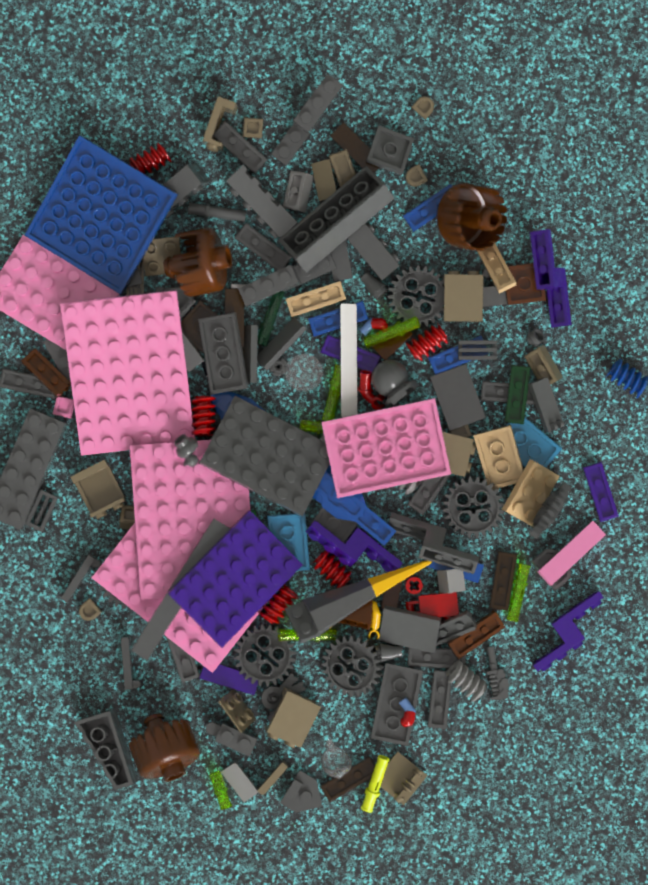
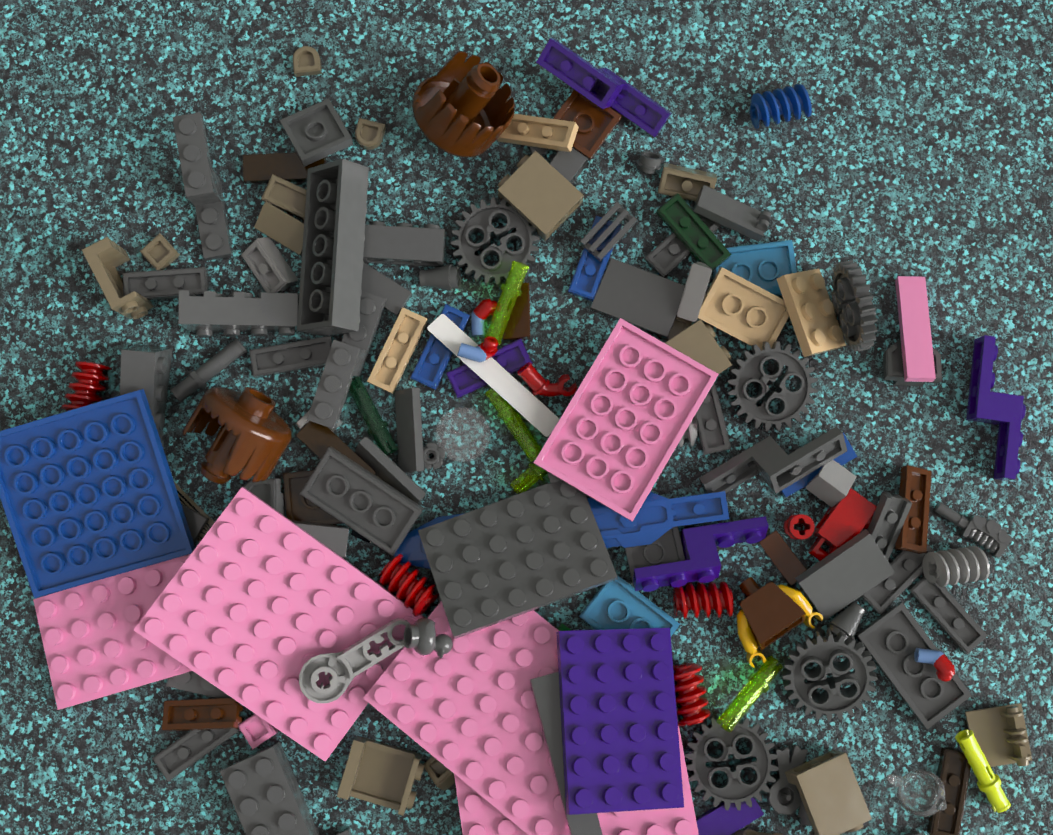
camera: 45 degrees left, 5 degrees down
(138, 422) = (346, 664): none -> light grey beam
(157, 252) = (187, 473): dark tan hinge -> none
(324, 610) = (743, 653): dark grey plate -> none
(354, 343) = (481, 352): none -> arm
(392, 380) = (558, 348): dark grey tile -> none
(425, 211) = (414, 155): blue tile -> none
(428, 342) = (550, 275): red piece -> none
(485, 423) = (694, 291): none -> light grey slope
(503, 580) = (877, 428): dark brown tile -> none
(518, 592) = (905, 422): clear neon green pin -> none
(600, 492) = (873, 242): dark purple tile -> none

